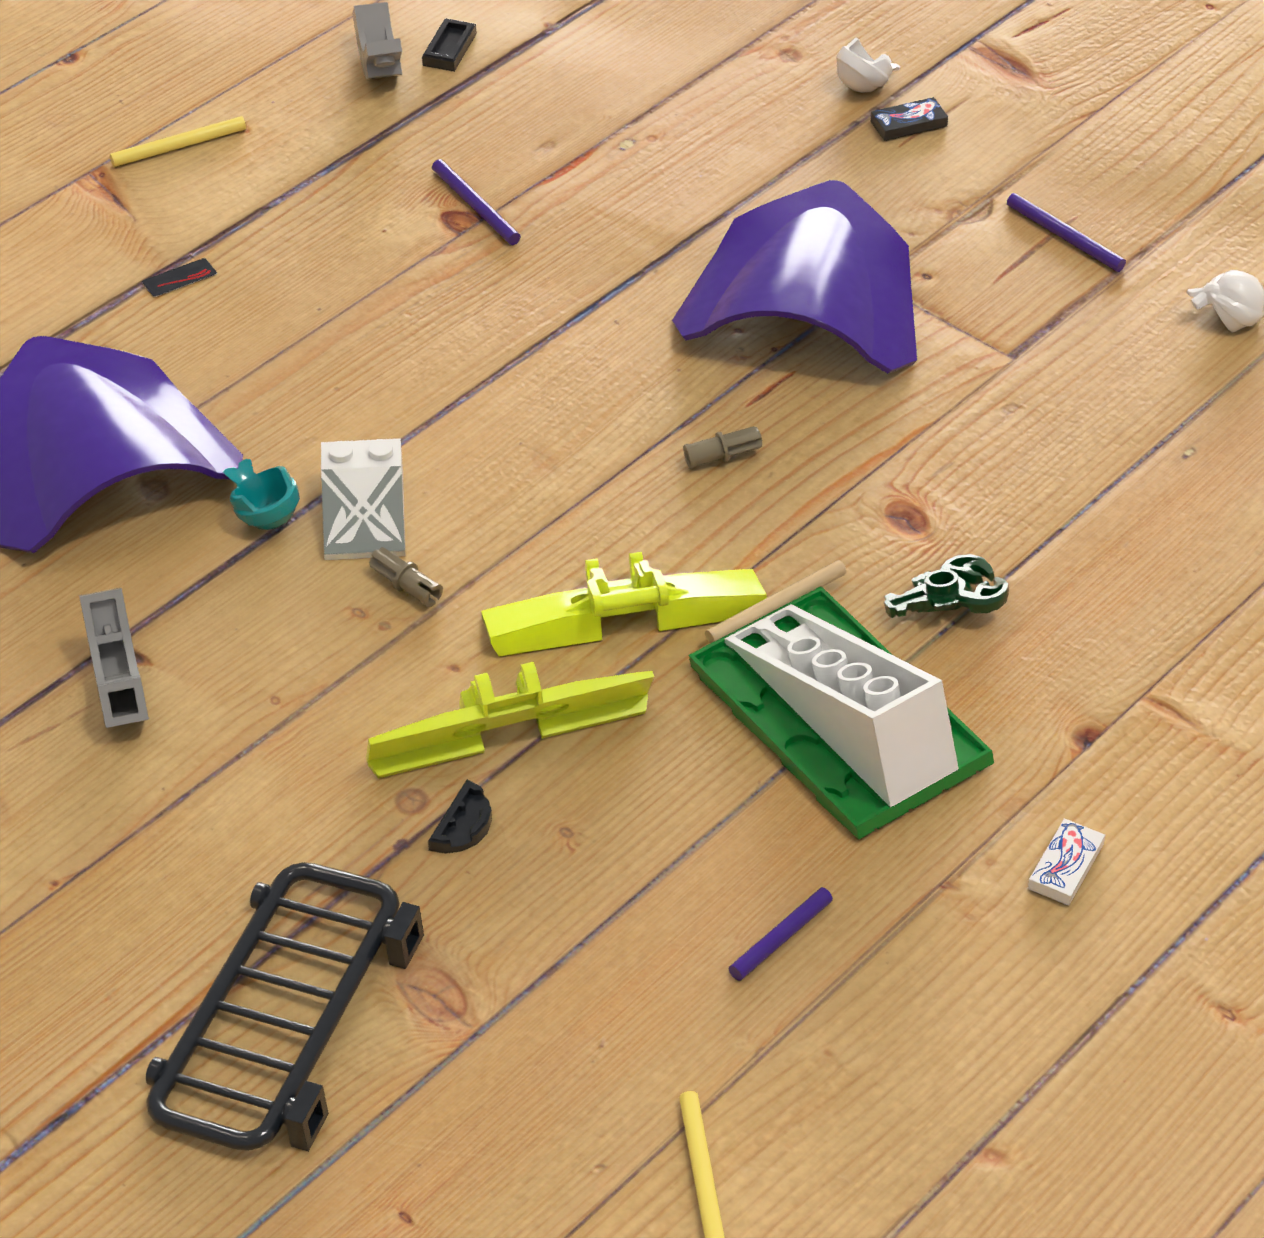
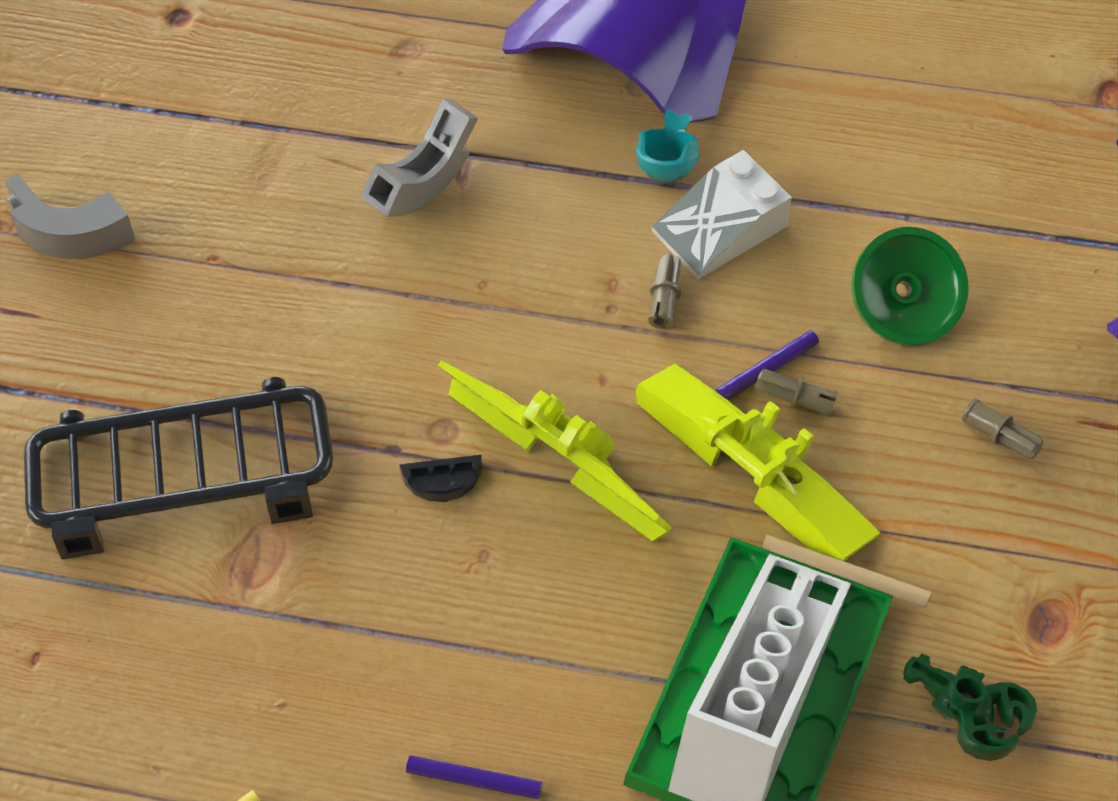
camera: 60 degrees right, 10 degrees up
(537, 552) = (770, 363): none -> dark purple bar
(550, 420) = (933, 282): none -> green dish
(583, 546) = (796, 392): none -> dark tan axle

